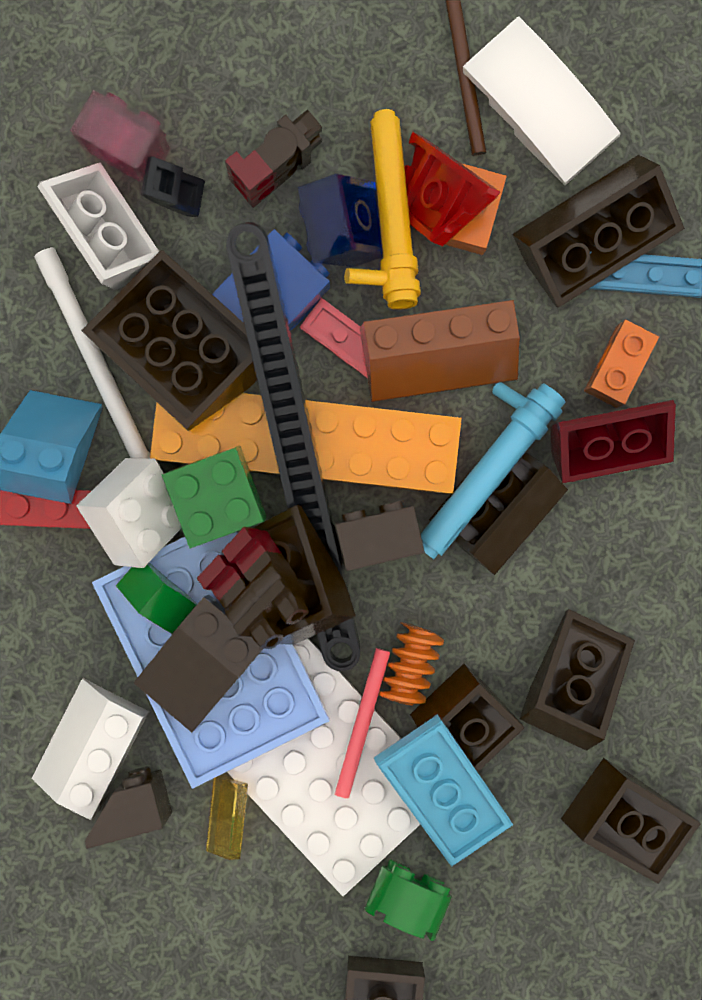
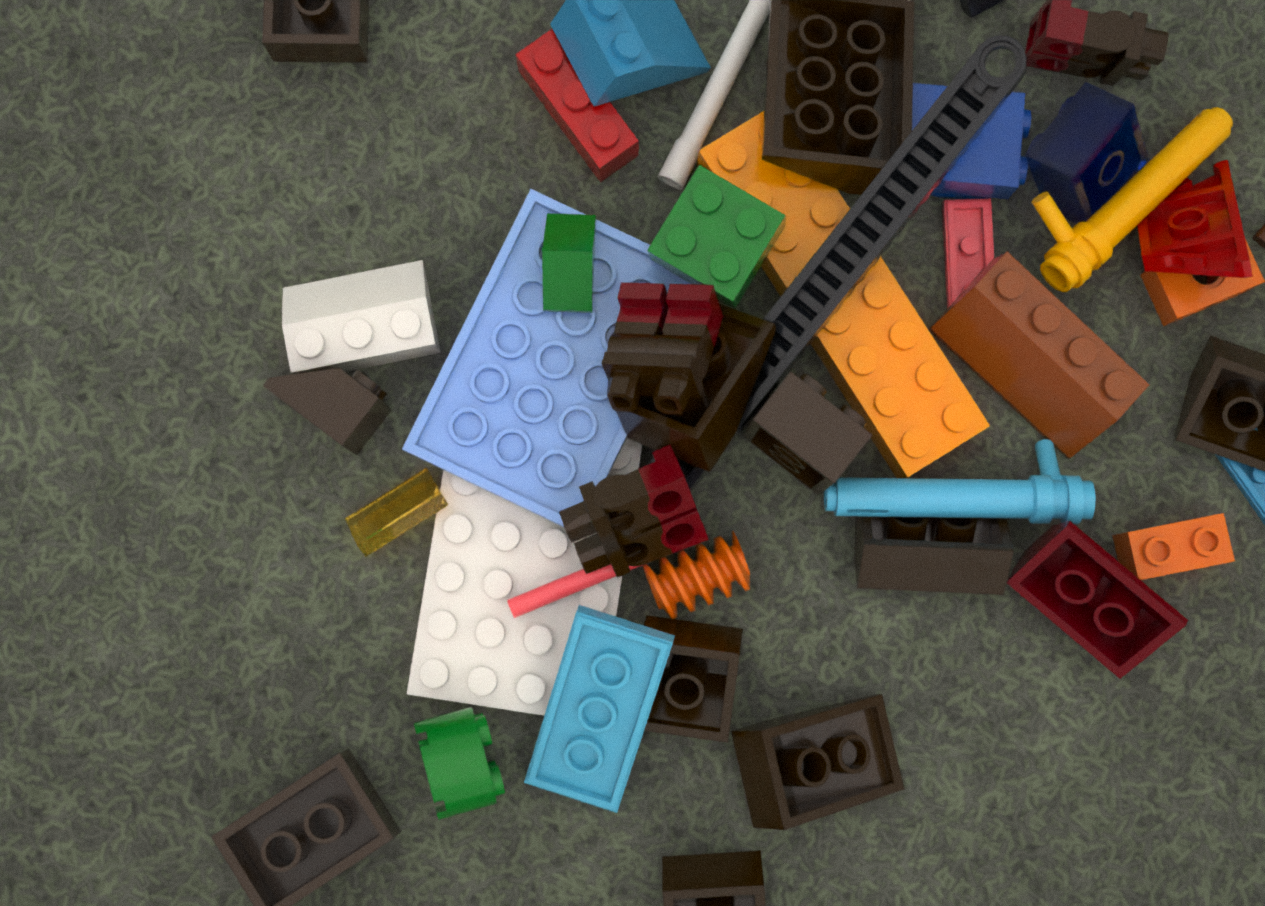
camera: 50 degrees right, 5 degrees down
(131, 512) = (632, 172): white brick -> none
(197, 664) = (535, 354): dark brown slope -> none
(346, 681) = (634, 517): none -> dark brown hips

